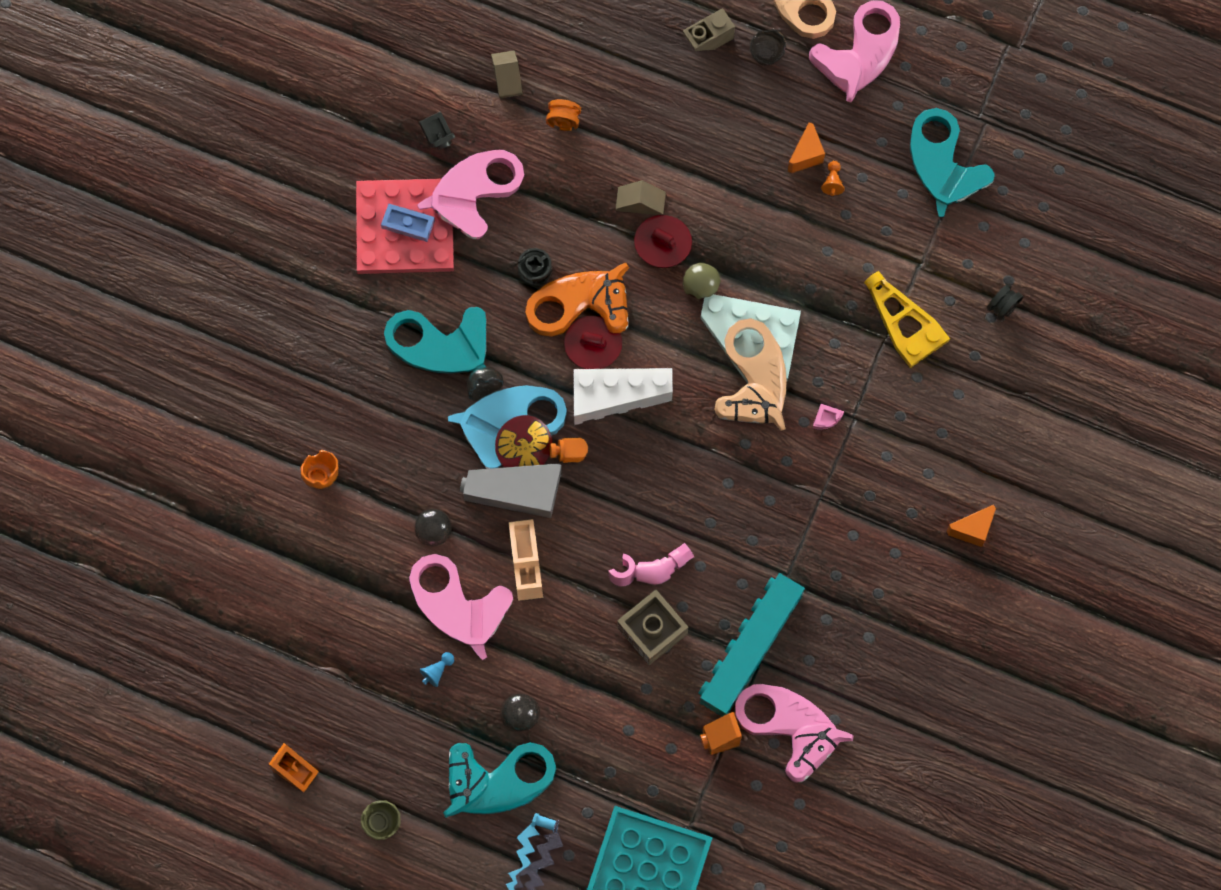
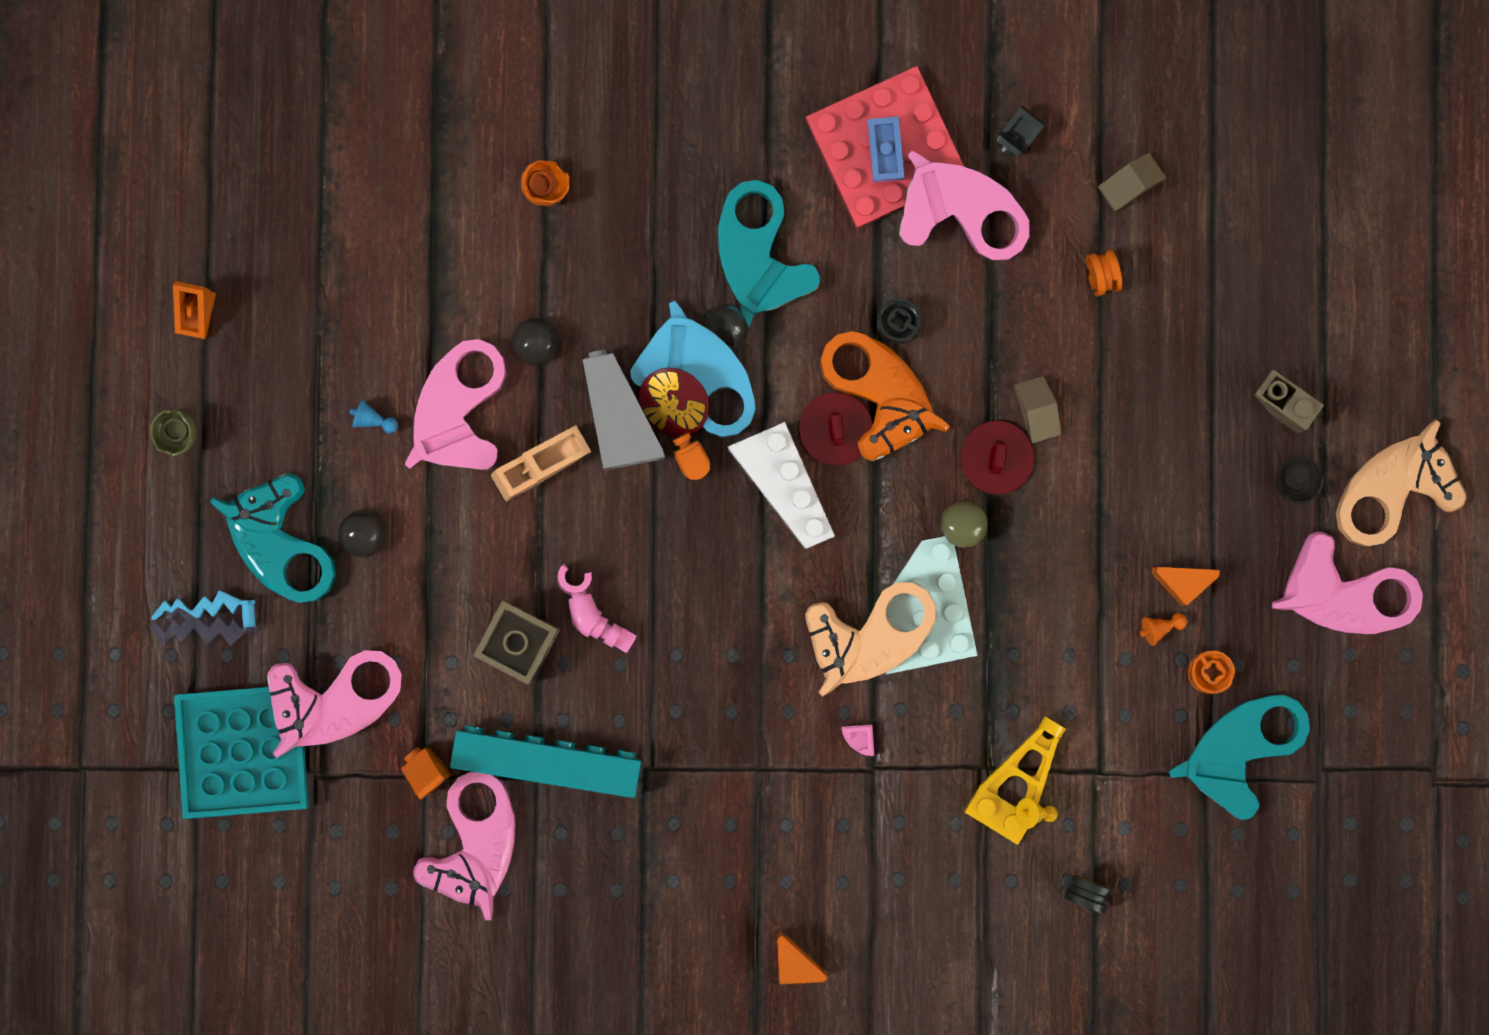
camera: 70 degrees right, 15 degrees up
(646, 802) = (316, 718): none -> bright pink animal
(879, 159) = (1211, 672): none -> orange wheel
(929, 317) = (1030, 813): none -> yellow piece

